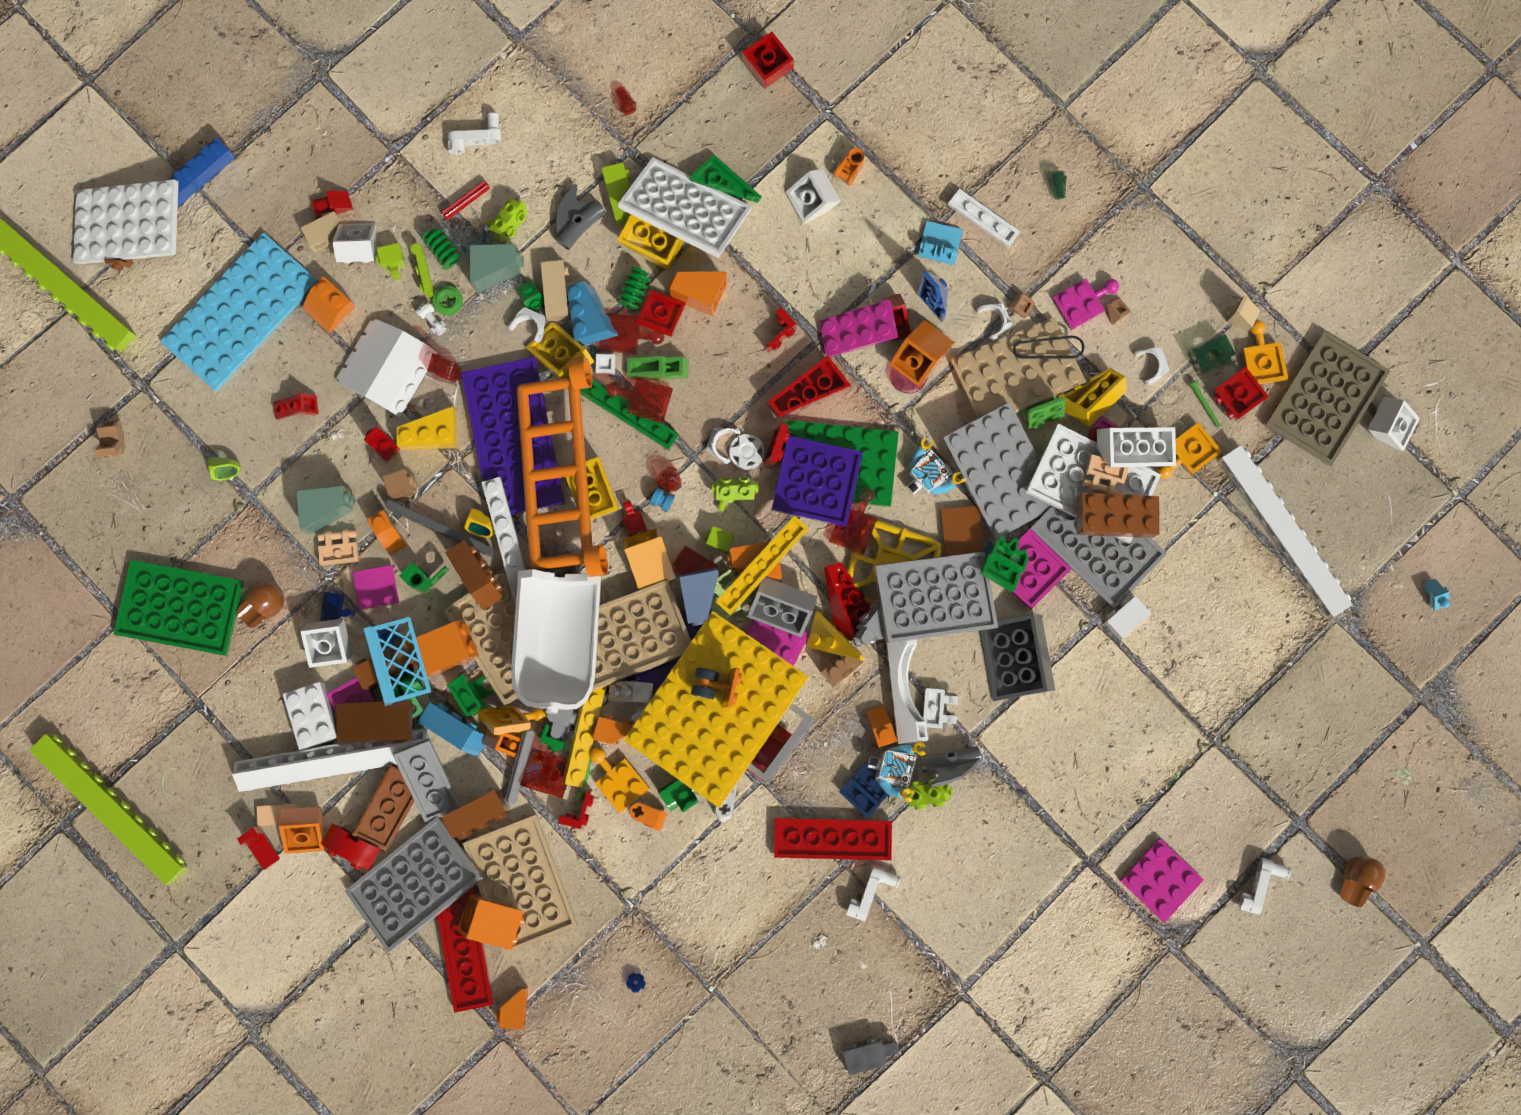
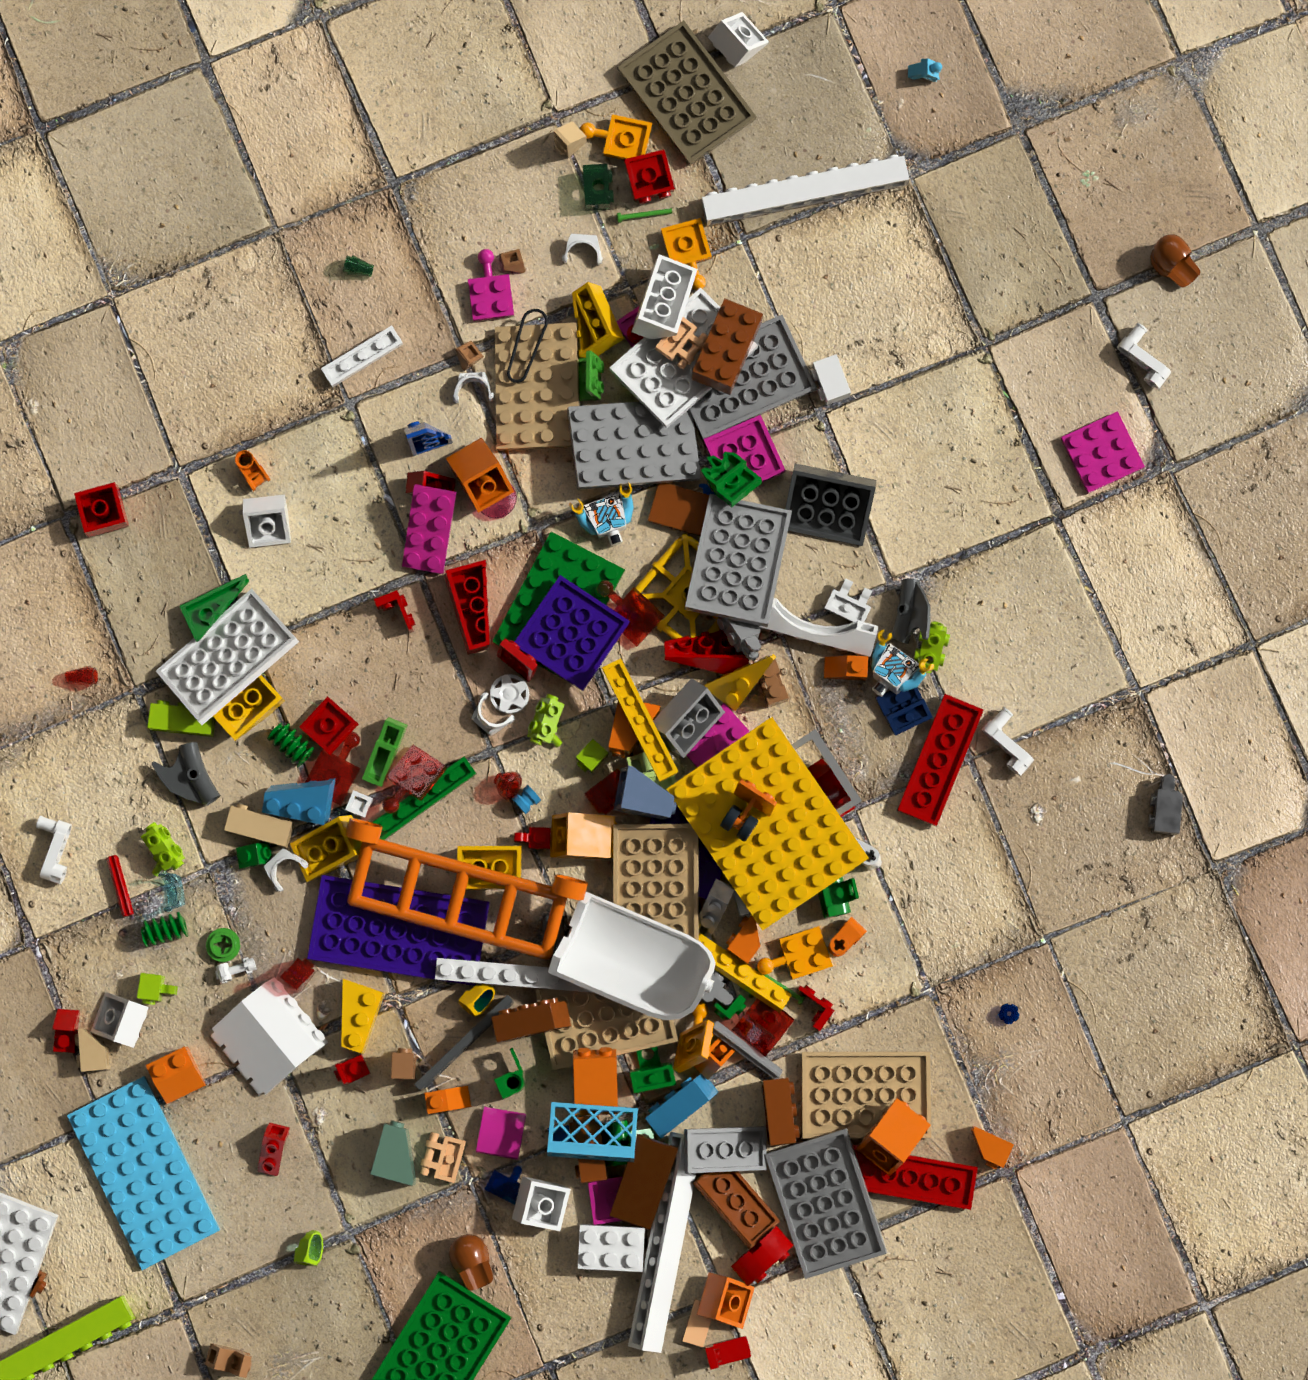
camera: 75 degrees left, 0 degrees up
(423, 270) = (179, 959): lime plate -> none
(493, 264) = (206, 879): sand green slope -> none
(699, 289) = (321, 676): orange slope -> none
(940, 243) = (369, 410): medium azure hinge -> none

